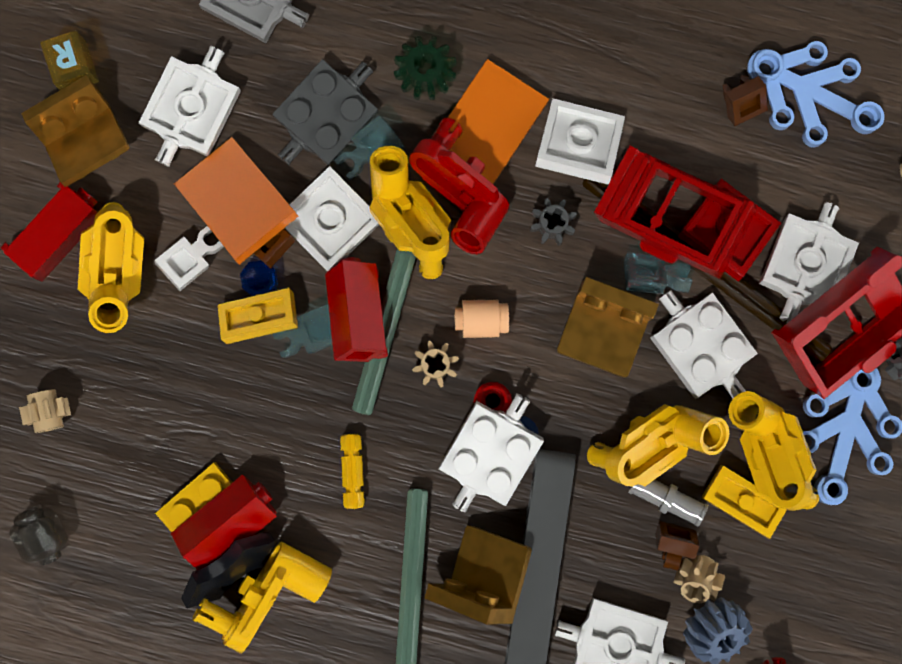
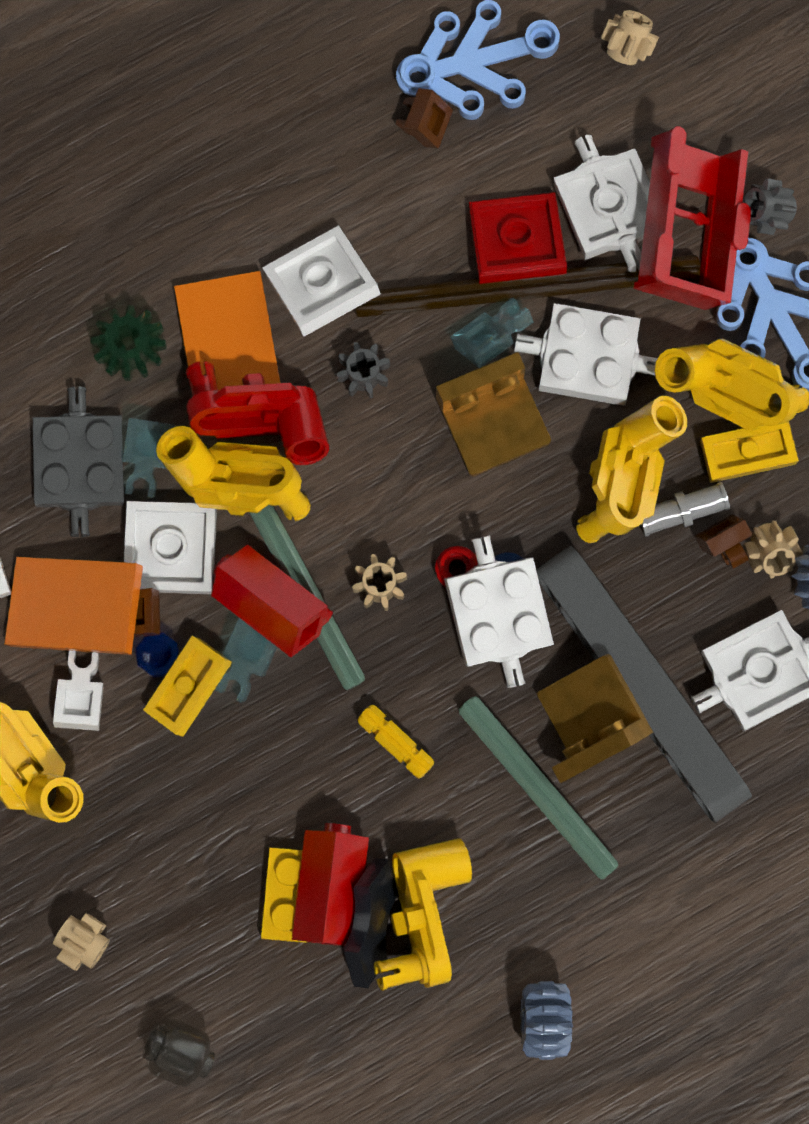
camera: 40 degrees left, 5 degrees down
(482, 318) = (381, 507): light nougat brick -> none
(628, 190) = (402, 285): red piece -> none

